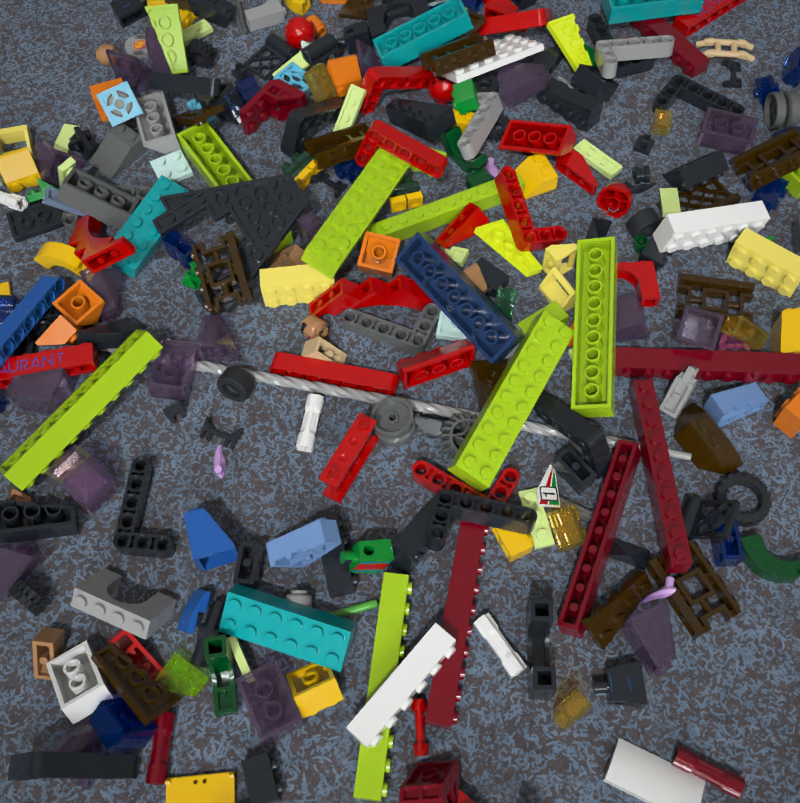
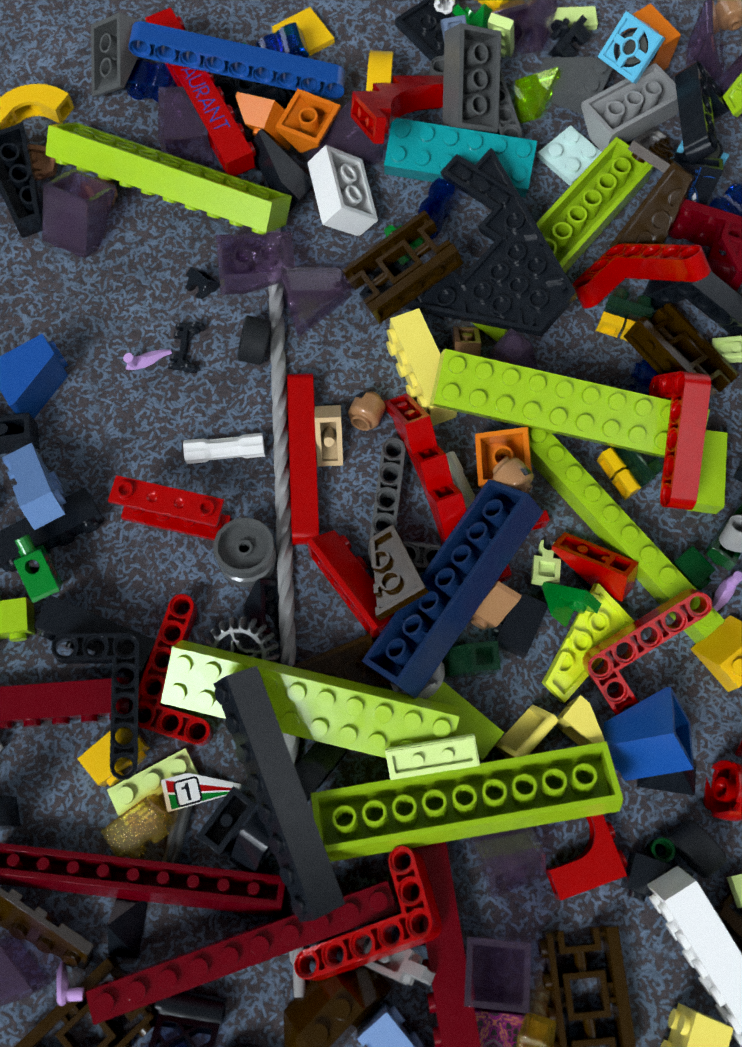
camera: 70 degrees right, 10 degrees up
(115, 172) = (533, 93): none -> clear neon green wing
(136, 514) = (53, 288): black beam -> none
(143, 300) = (342, 191): none -> white brick
(248, 136) = (659, 209): none -> dark brown wing
(277, 138) = (640, 261): none -> red beam
(321, 177) = (623, 349): black piece -> none
(395, 244) = (513, 474): none -> medium nougat head
(439, 328) = (394, 573): none -> dark brown wing
(479, 247) = (565, 600): none -> green slope
(565, 331) = (432, 756): none -> yellowish green tile
(569, 415) = (278, 795): none -> black brick
(576, 221) = (650, 737): none -> blue slope
(664, 390) = (380, 932): none -> red beam

